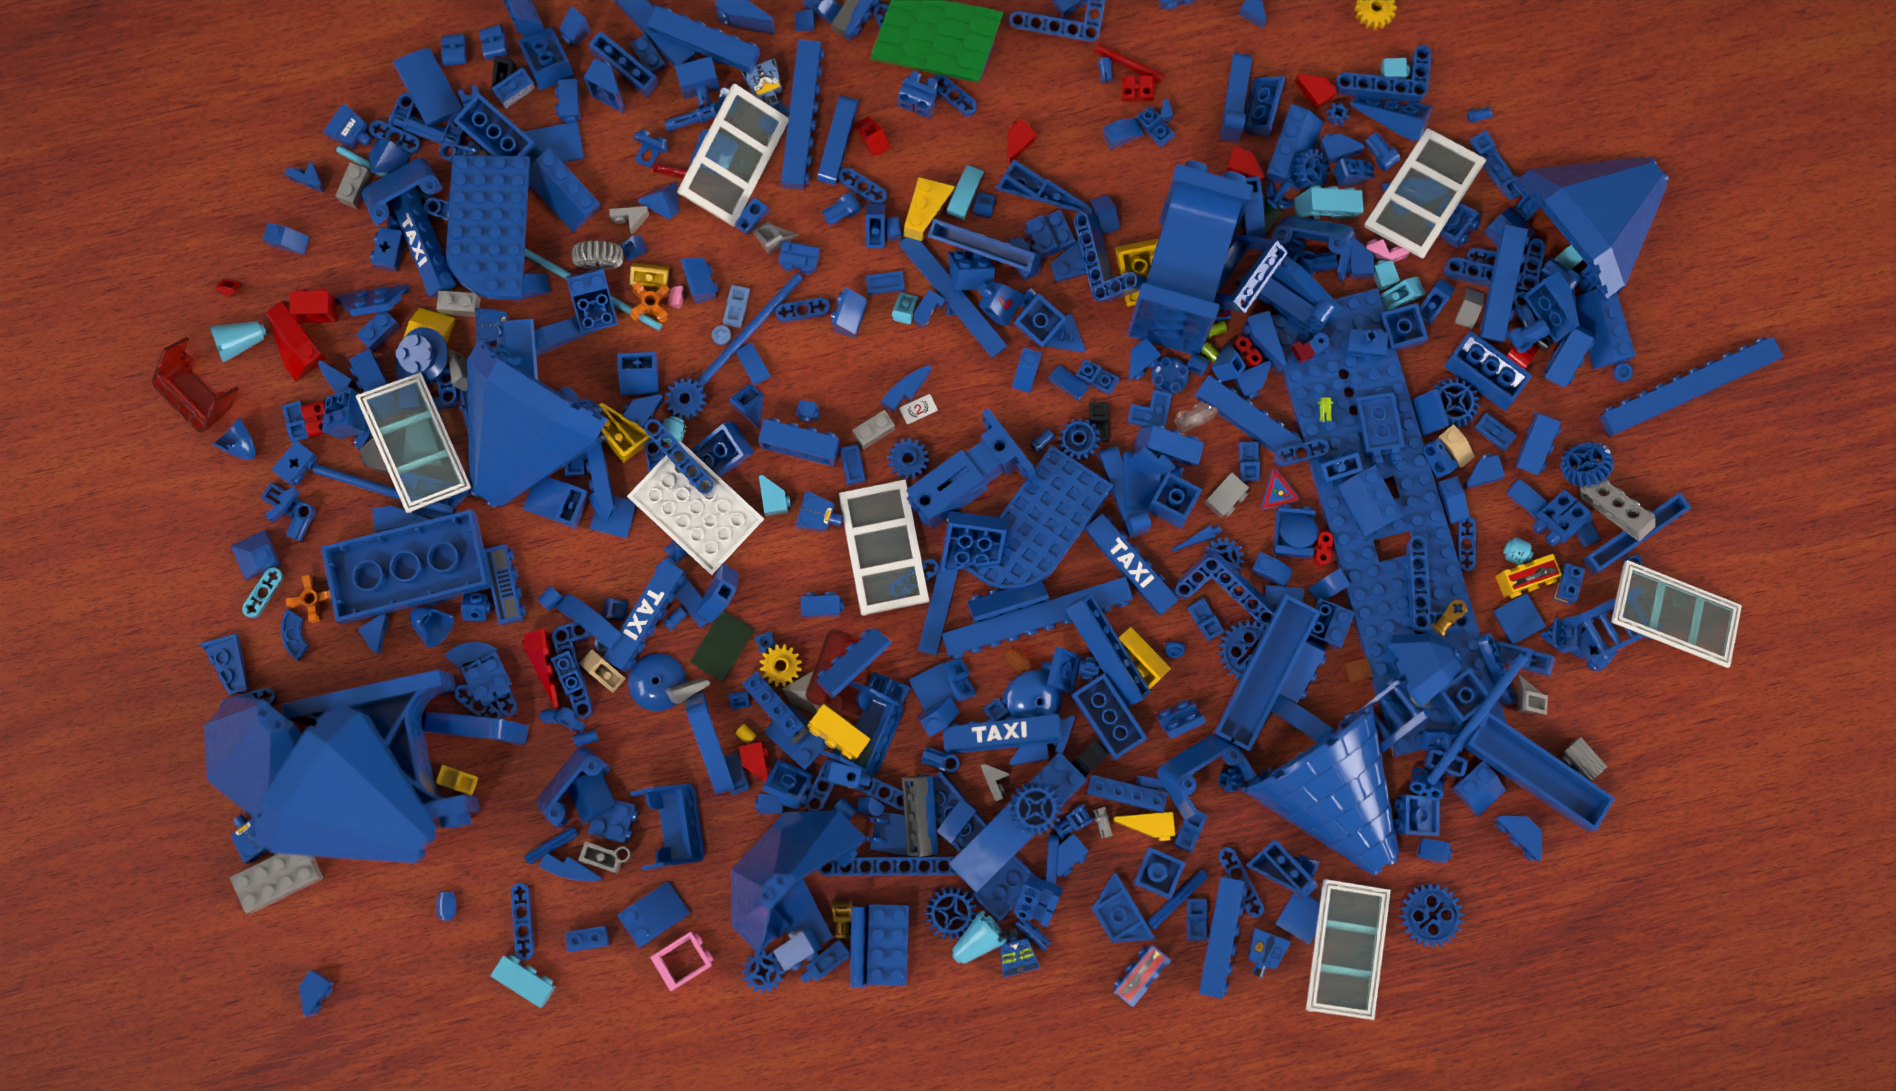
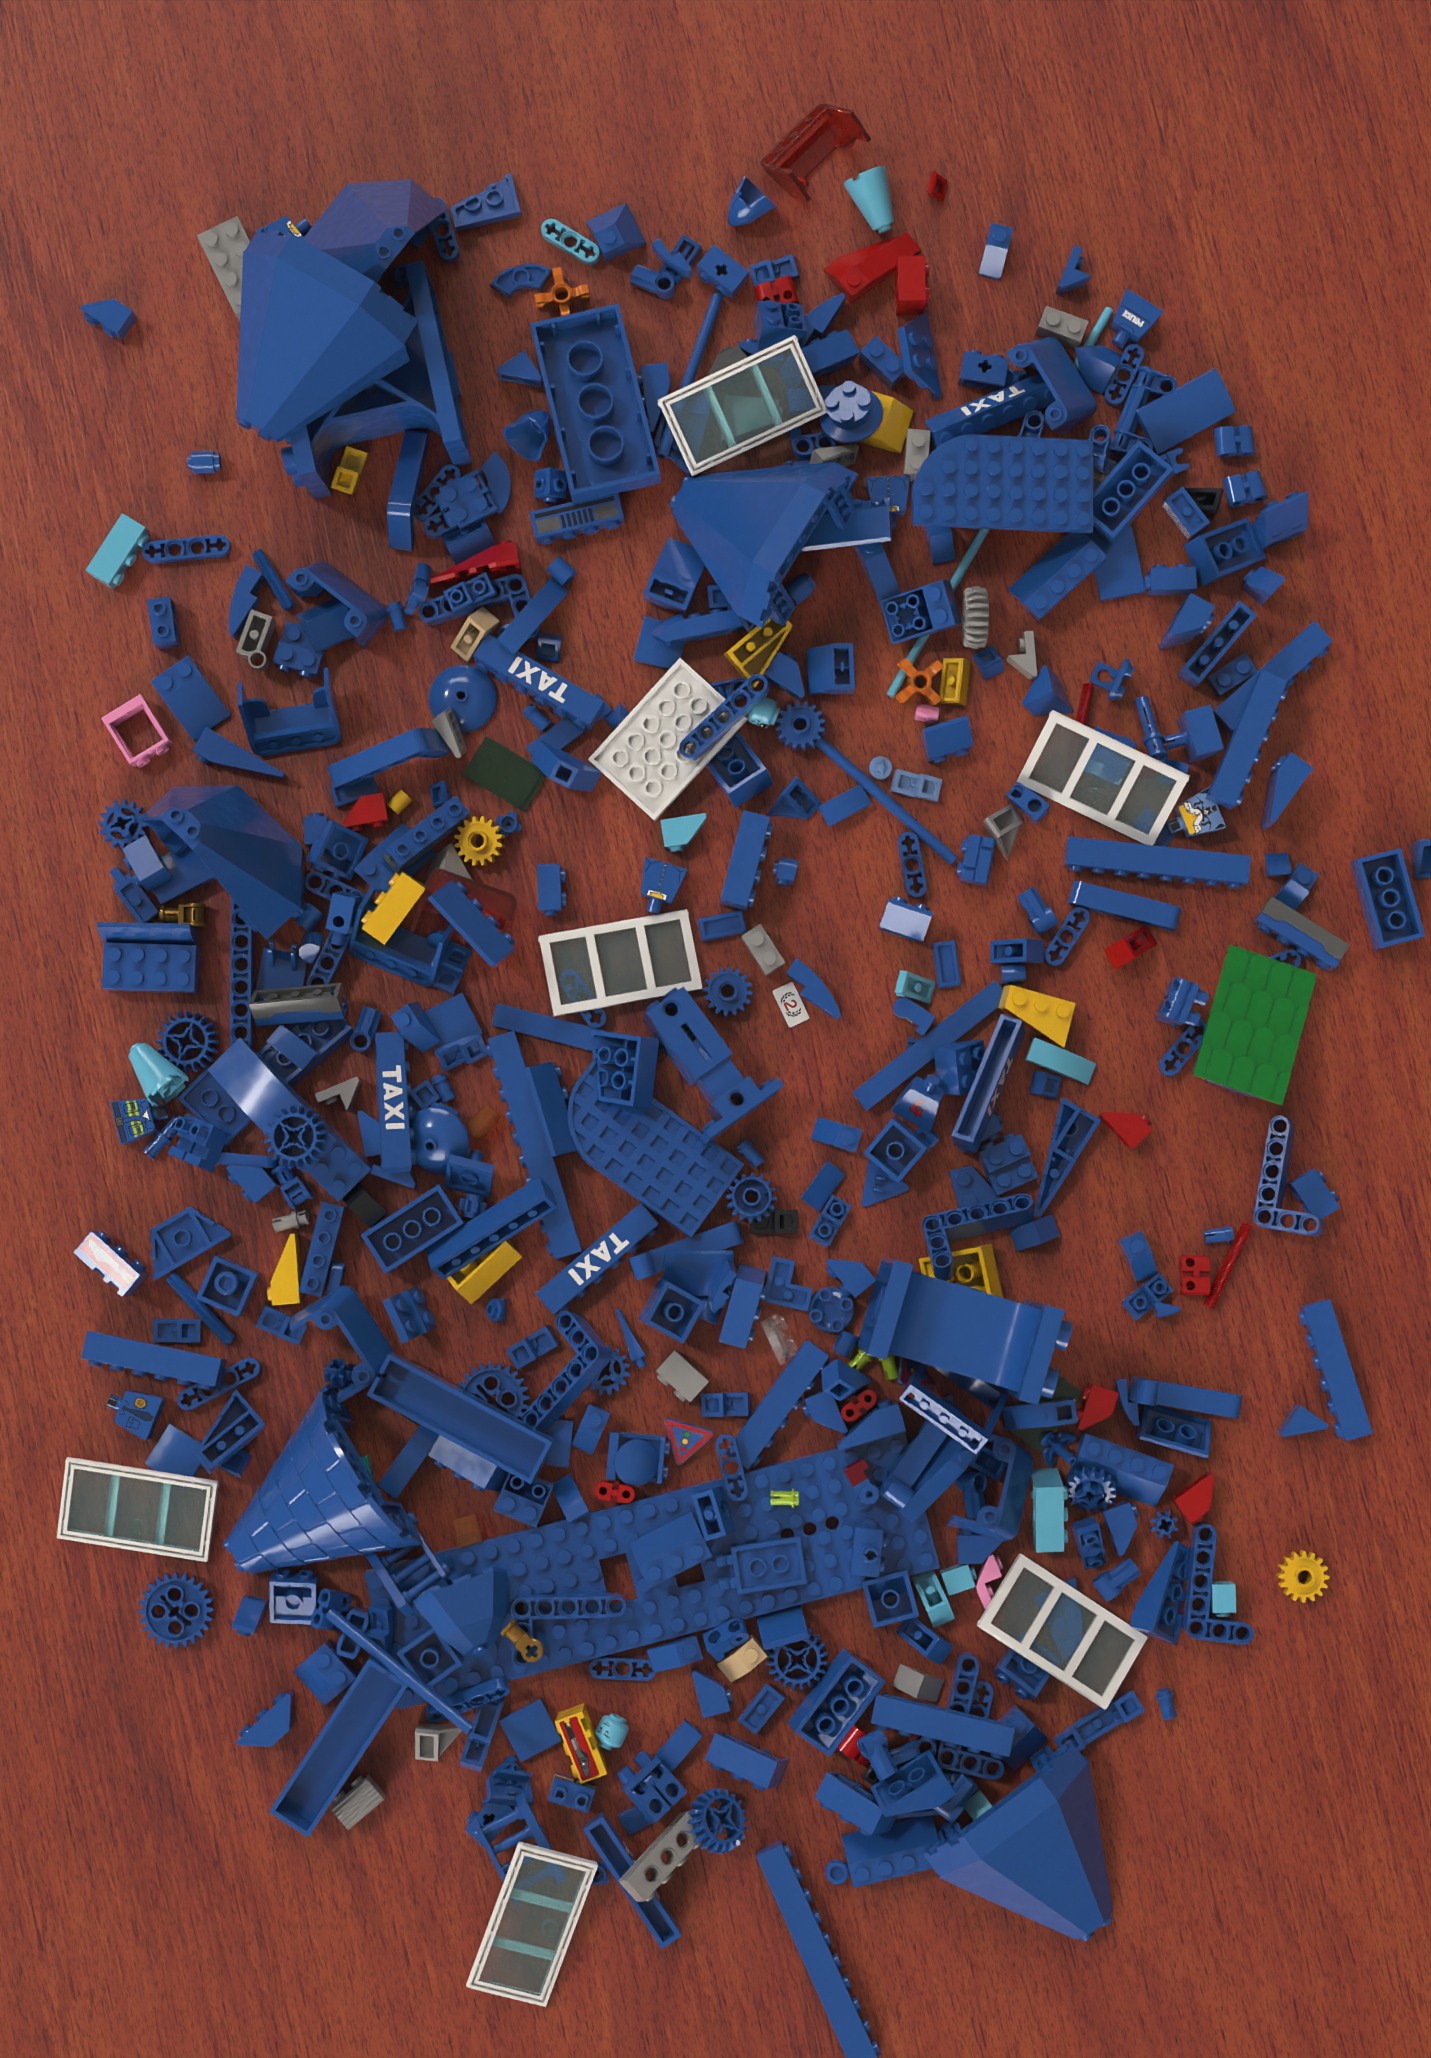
camera: 90 degrees right, 5 degrees up
(522, 676) = (468, 541): none -> blue panel
(702, 884) = (224, 753): none -> blue slope
(989, 694) = (443, 1087): none -> blue pin
(1246, 140) = (1128, 1407): none -> blue slope

